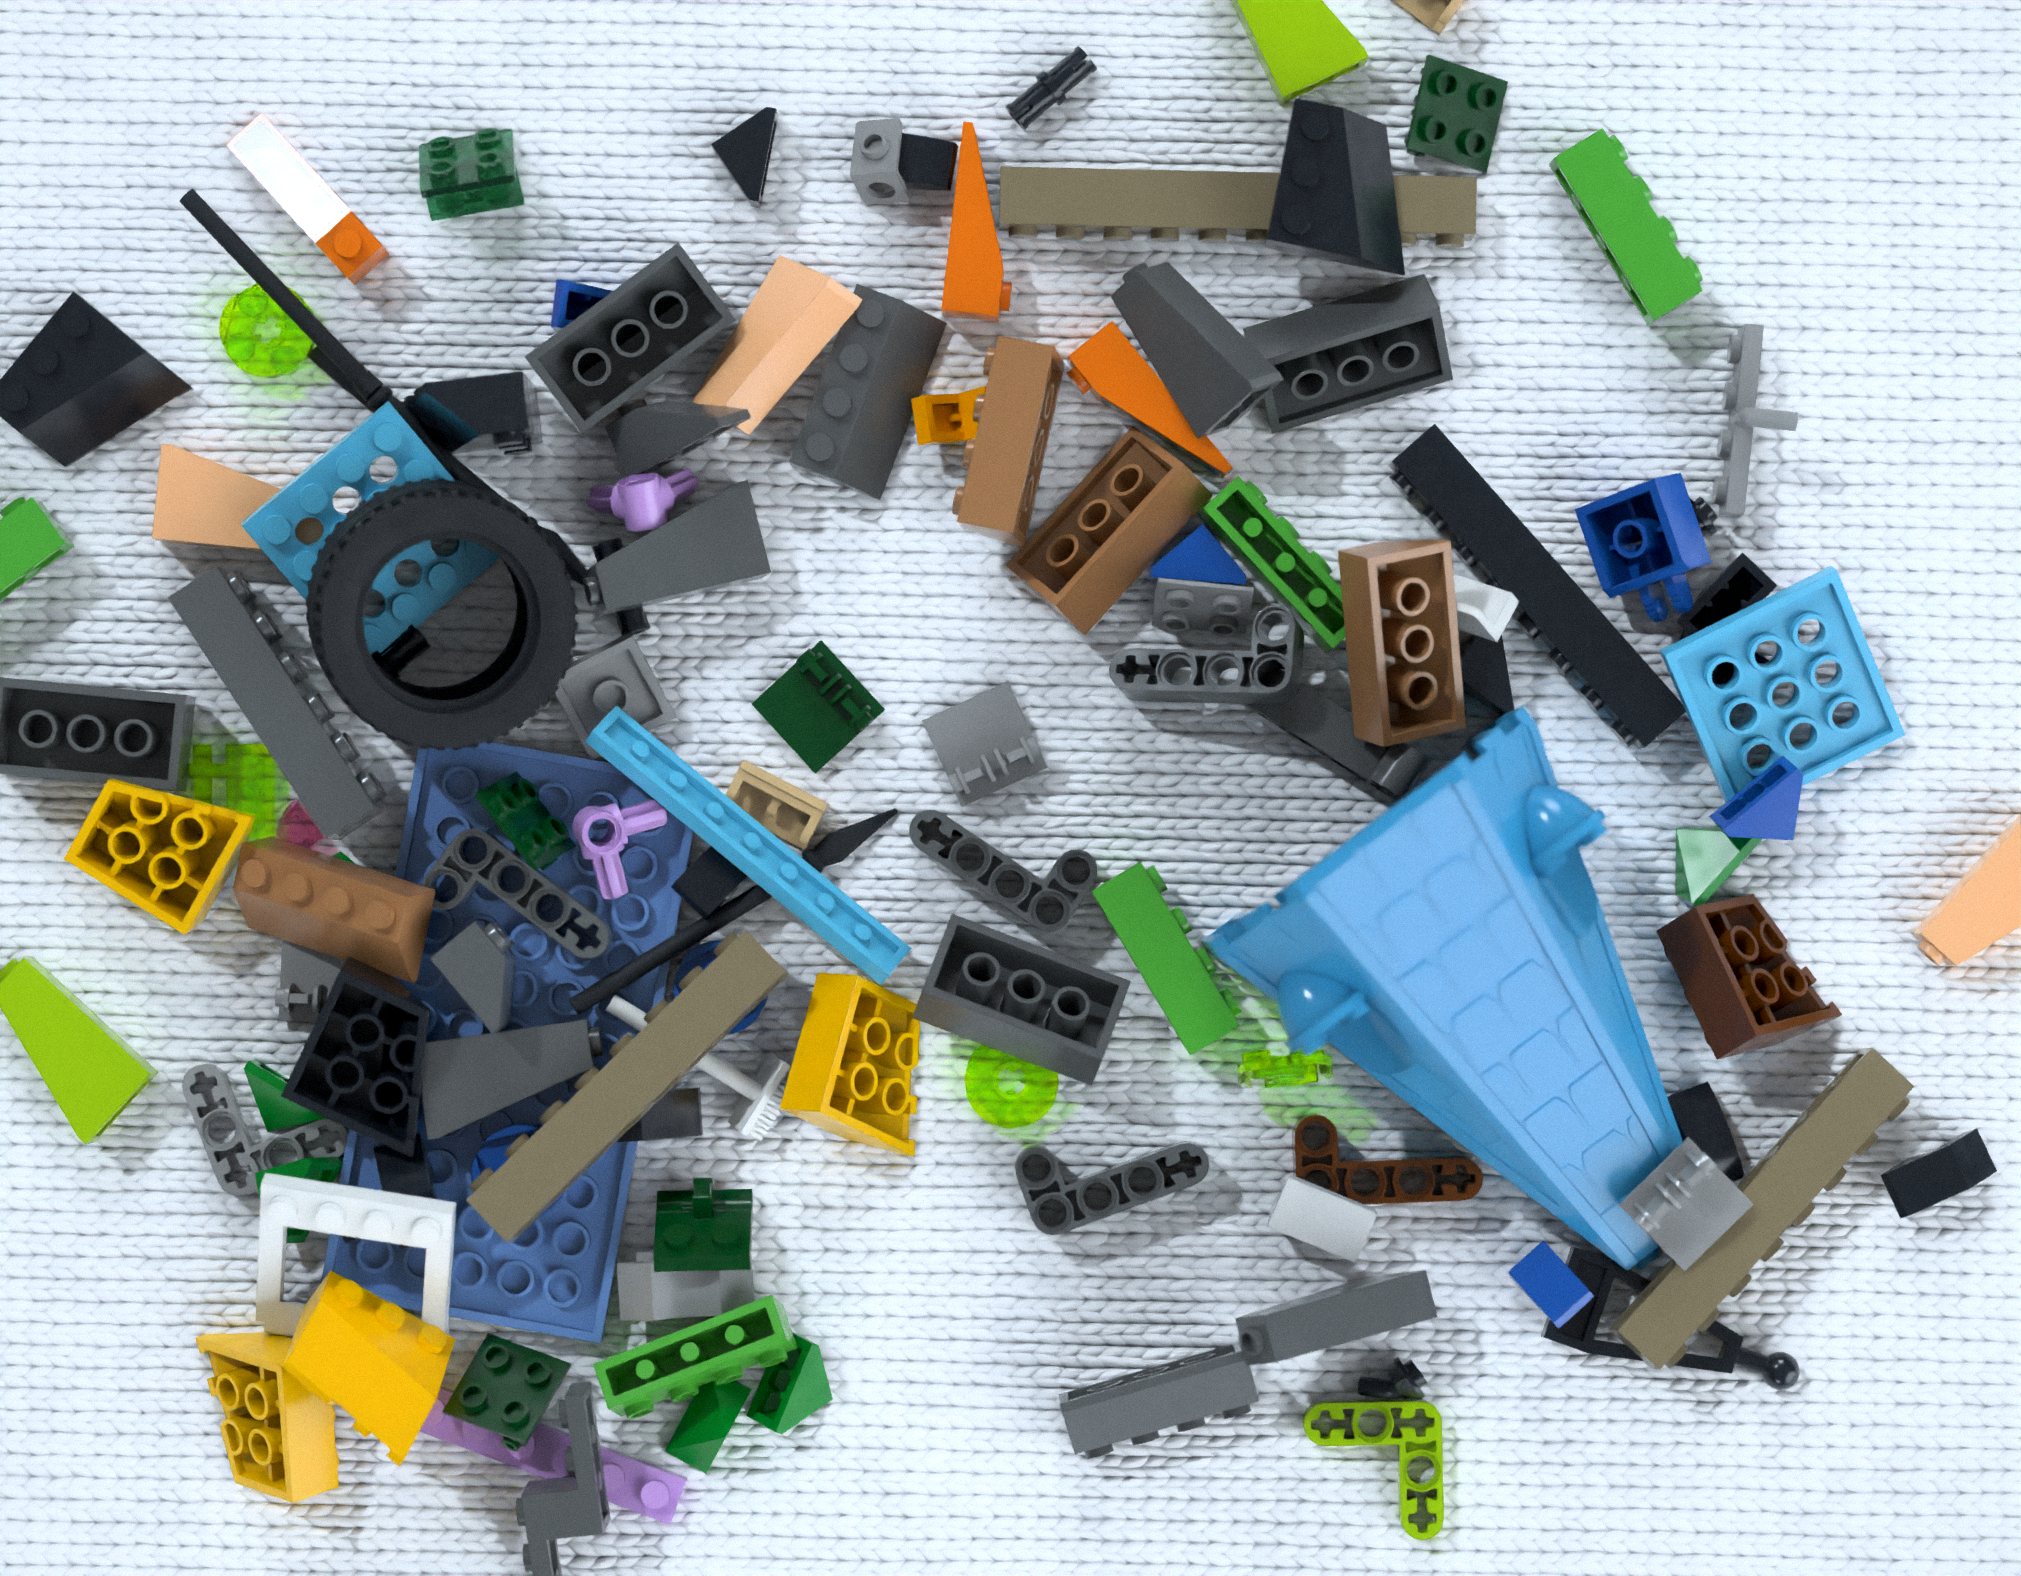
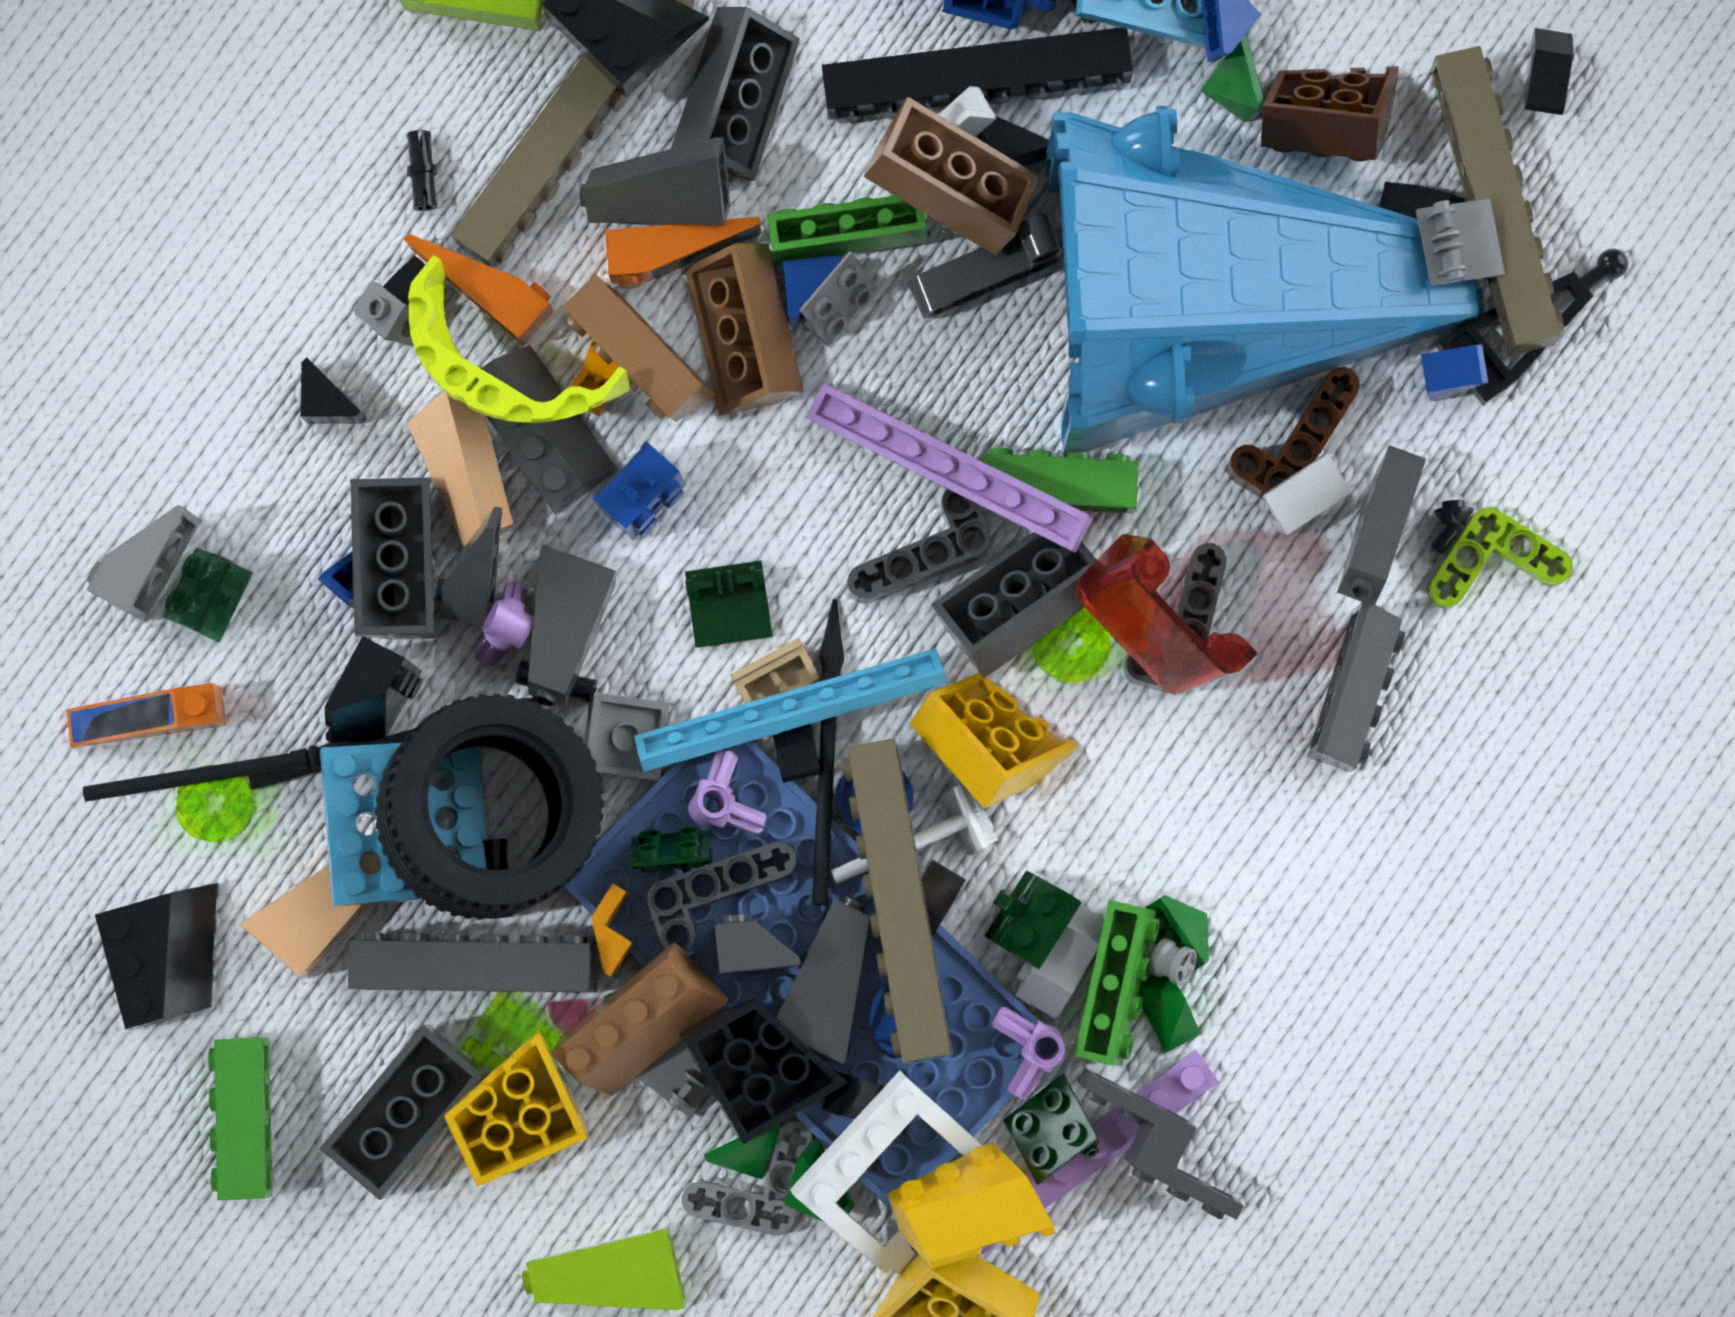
camera: 50 degrees left, 5 degrees down
(393, 826) = (611, 945): none -> light orange slope
(443, 91) = (142, 565): none -> light grey slope
(562, 1328) = (1034, 1062): none -> lavender axle
(755, 1399) = (1172, 962): none -> light grey wheel
(850, 299) = (472, 384): none -> neon yellow windscreen
(866, 542) = (640, 492): none -> blue hinge
(984, 744) = (831, 509): light grey hinge -> none
(1083, 1102) = (1125, 602): none -> clear red windscreen
(1101, 839) = (950, 468): none -> lavender plate
(1209, 664) = (879, 320): dark grey beam -> none
(1283, 1070) = (1188, 451): clear neon green plate -> none

